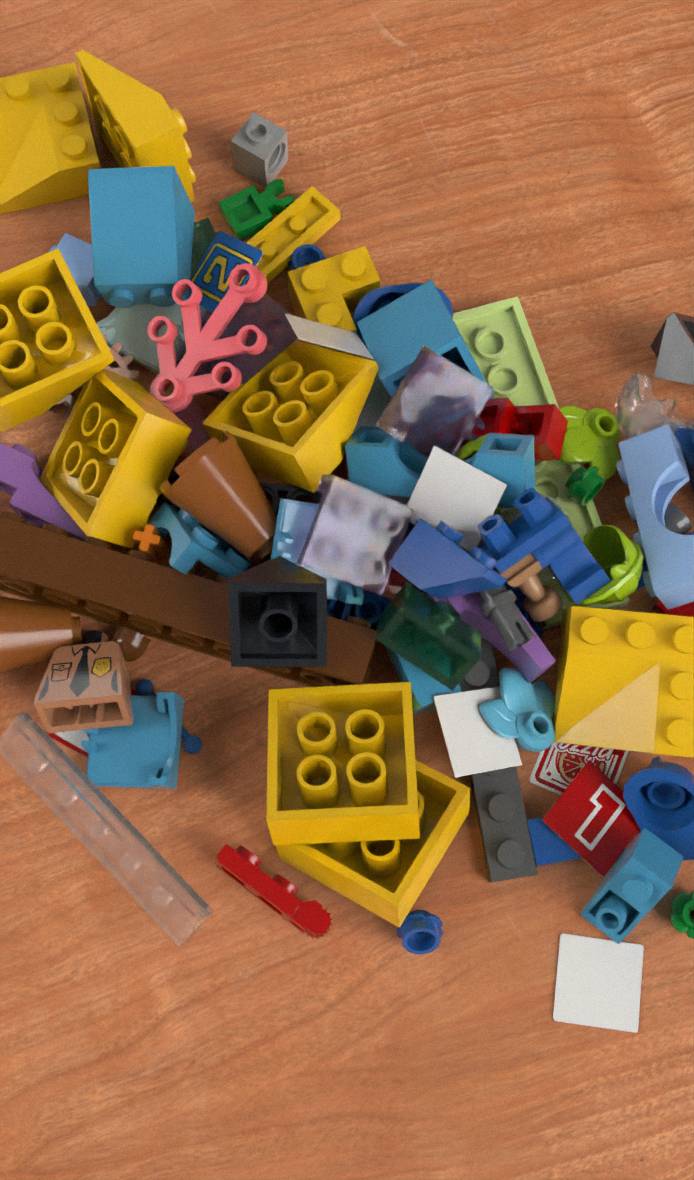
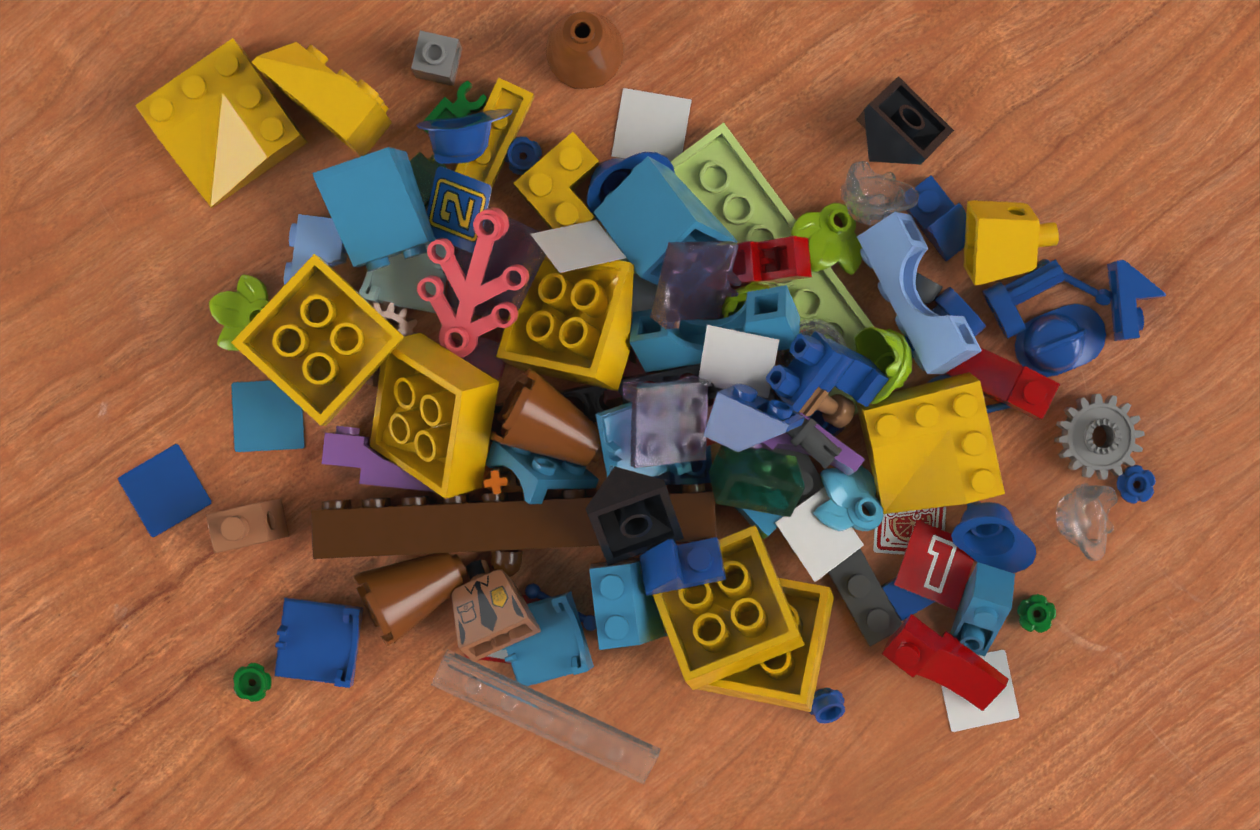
camera: 20 degrees left, 15 degrees up
(231, 723) = (621, 606): none -> dark azure slope
(255, 214) = (463, 137): none -> blue piece
(275, 893) = (704, 717): red hinge -> none
(310, 695) = (681, 566): none -> blue slope
(406, 183) = (584, 50): none -> dark orange cone
(452, 275) = (650, 124): none -> white sticker
(572, 930) = (944, 661): none -> red slope
(584, 485) = (839, 288): green plate -> none

